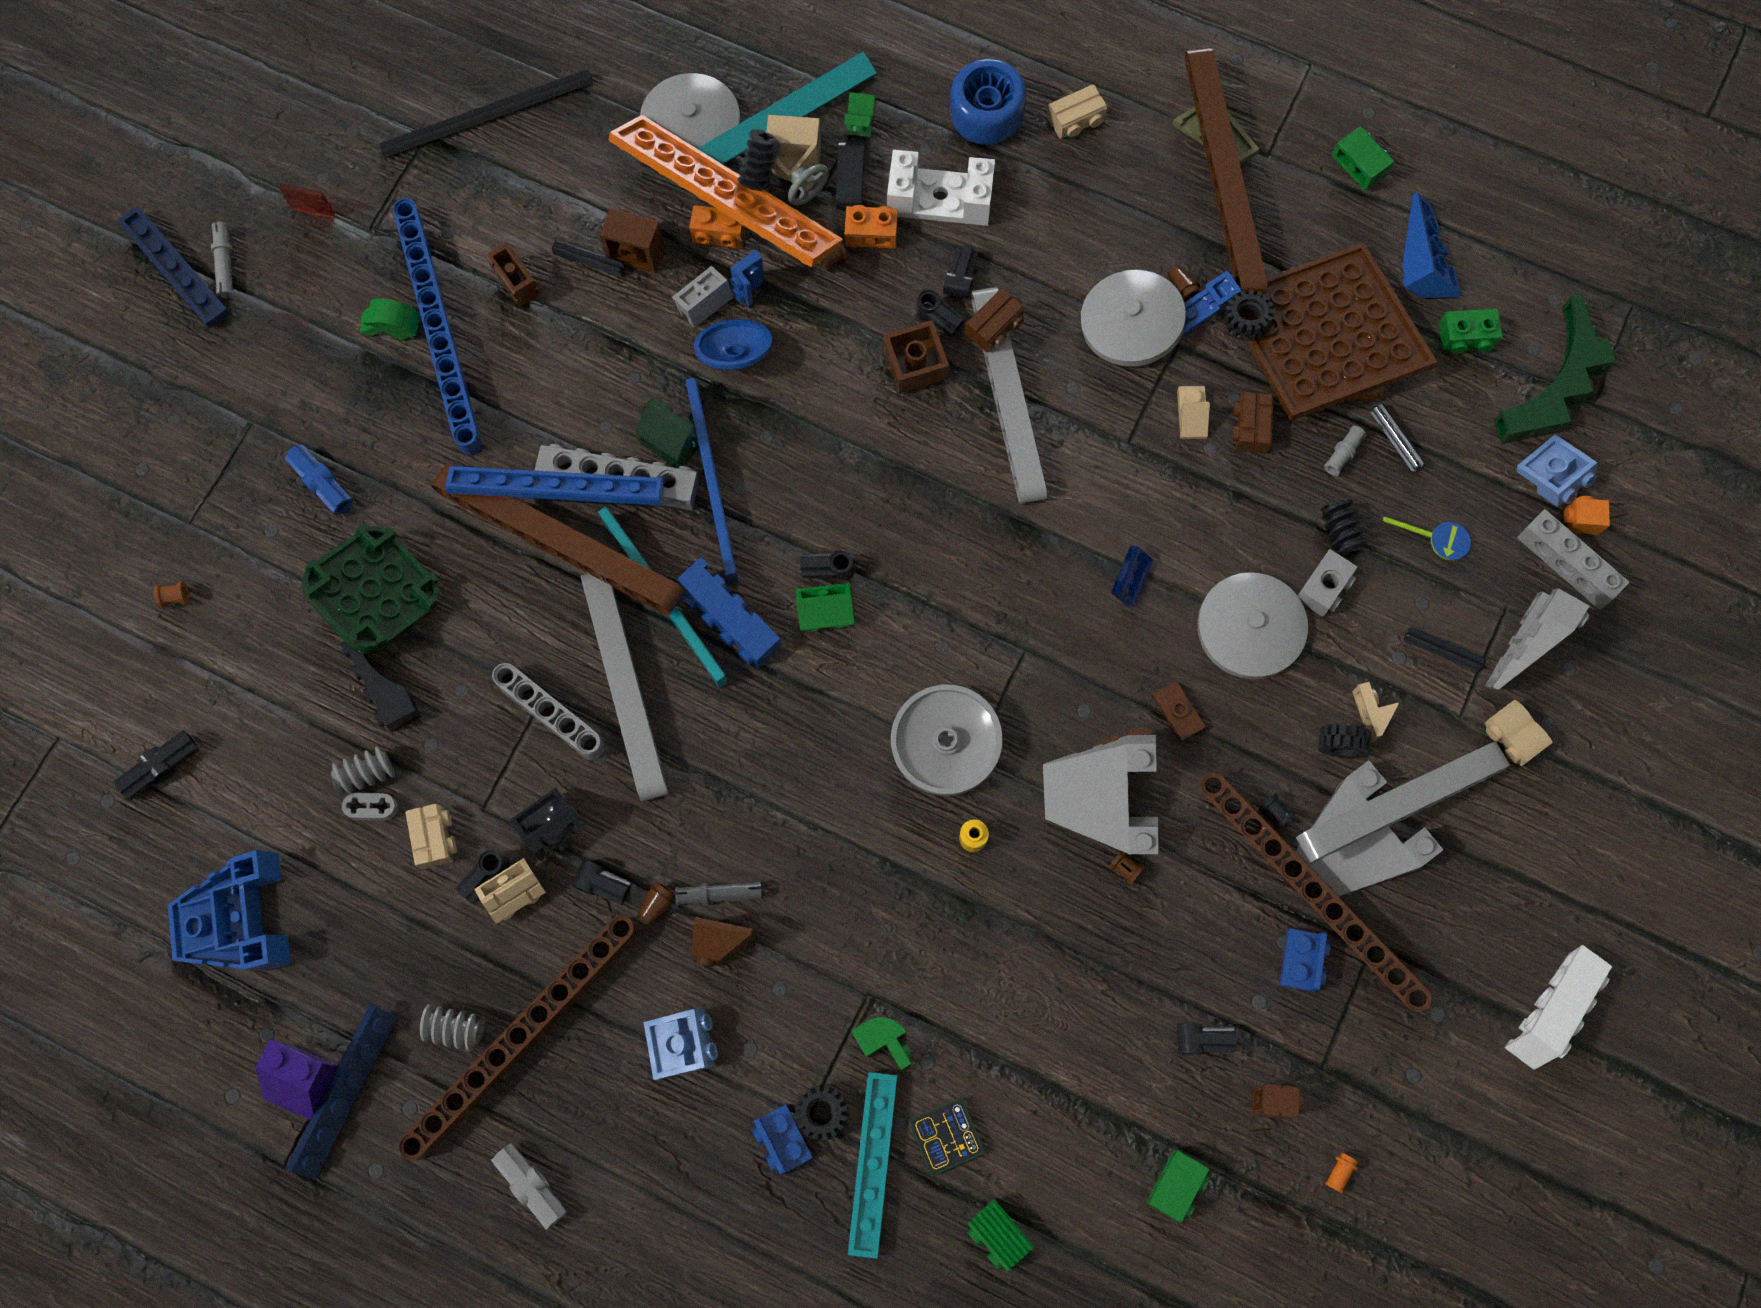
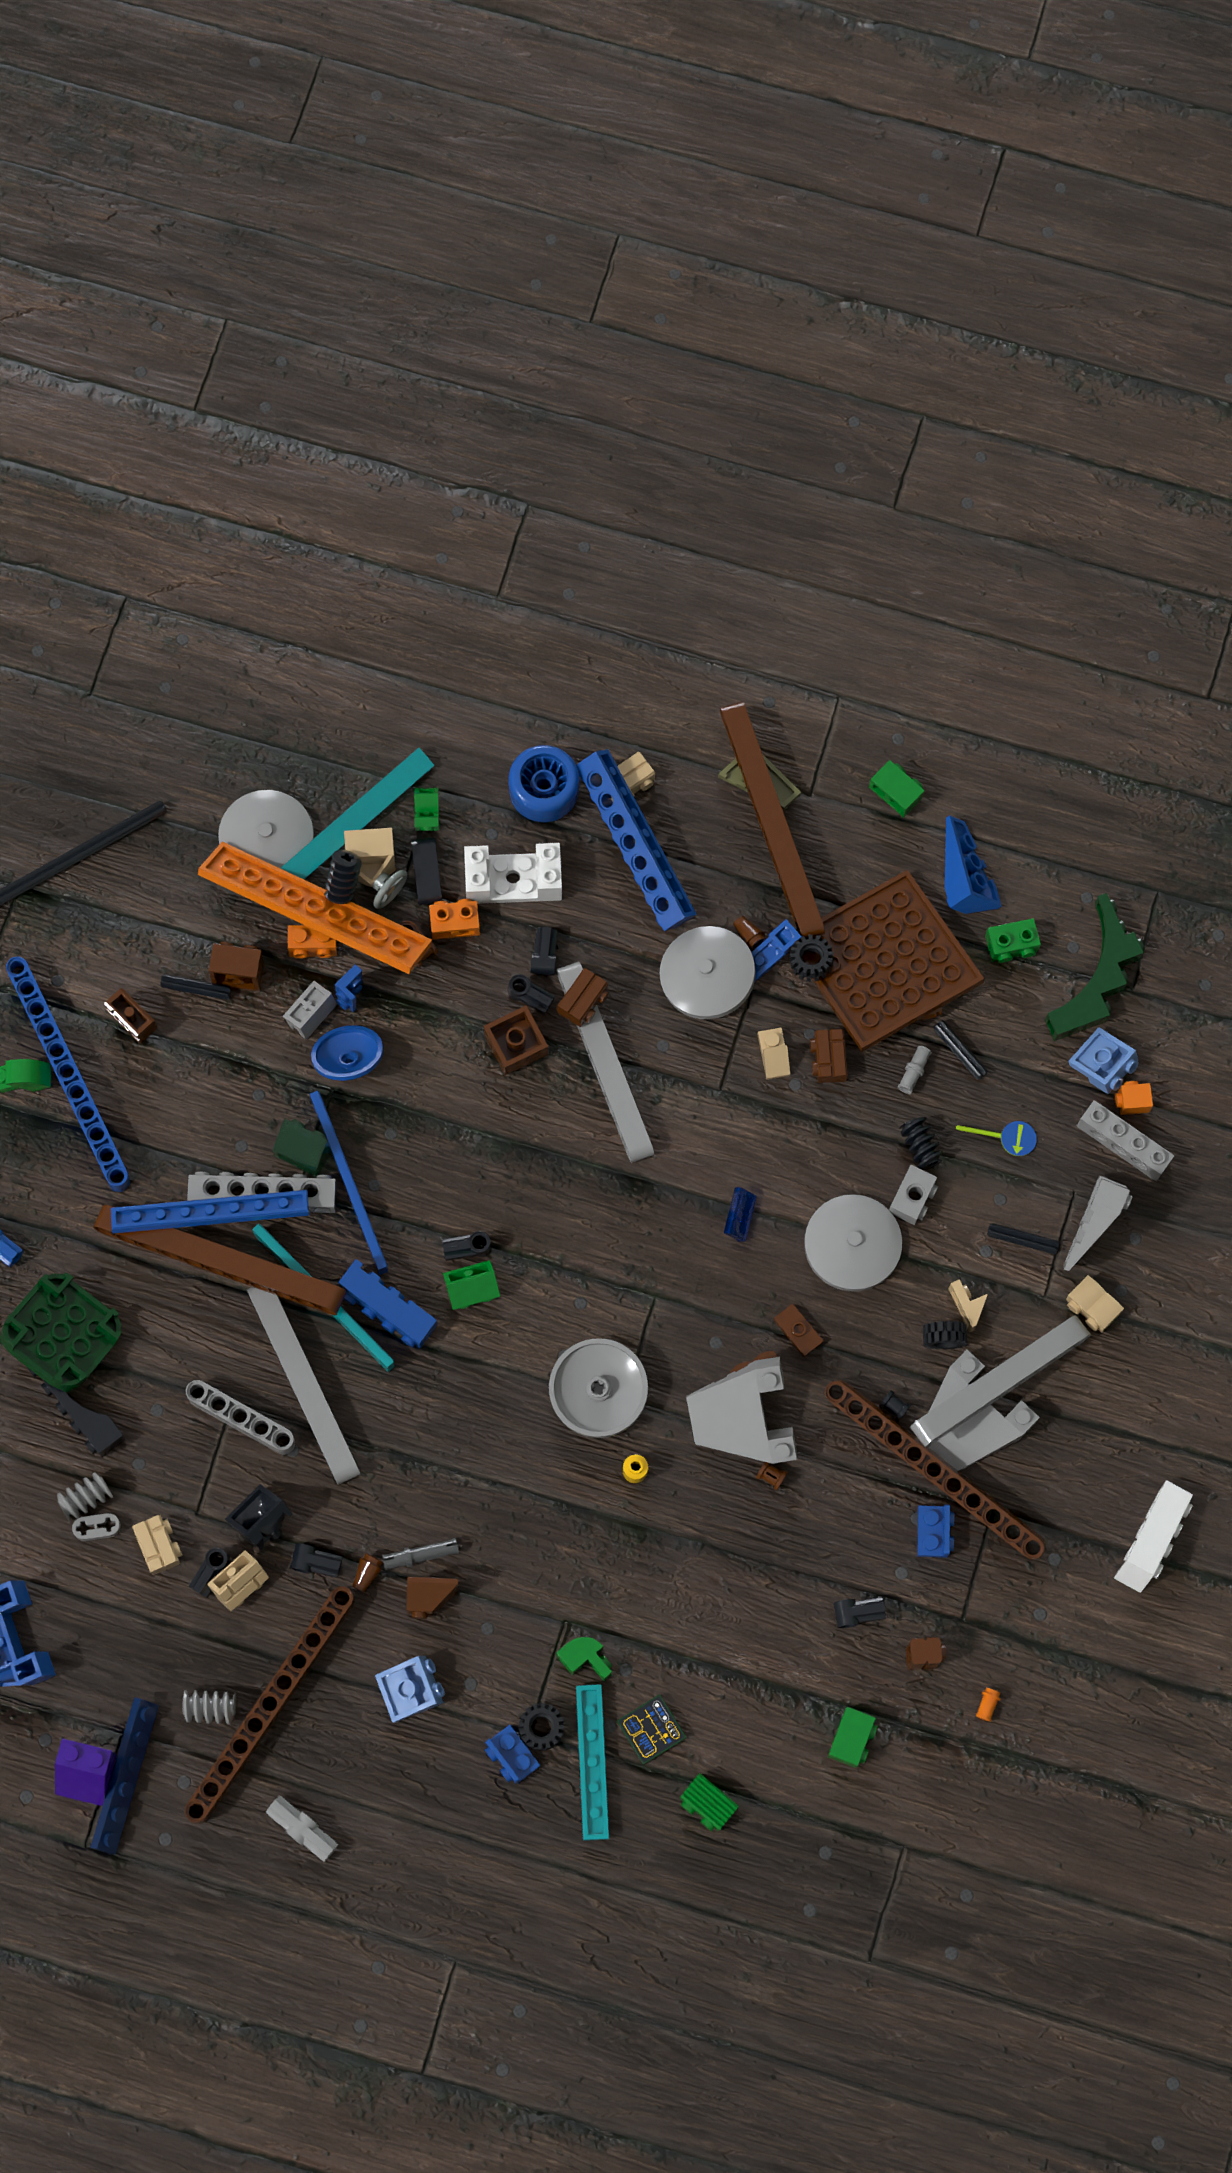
camera: 15 degrees left, 0 degrees up
(1052, 87) = (646, 845): none -> blue brick

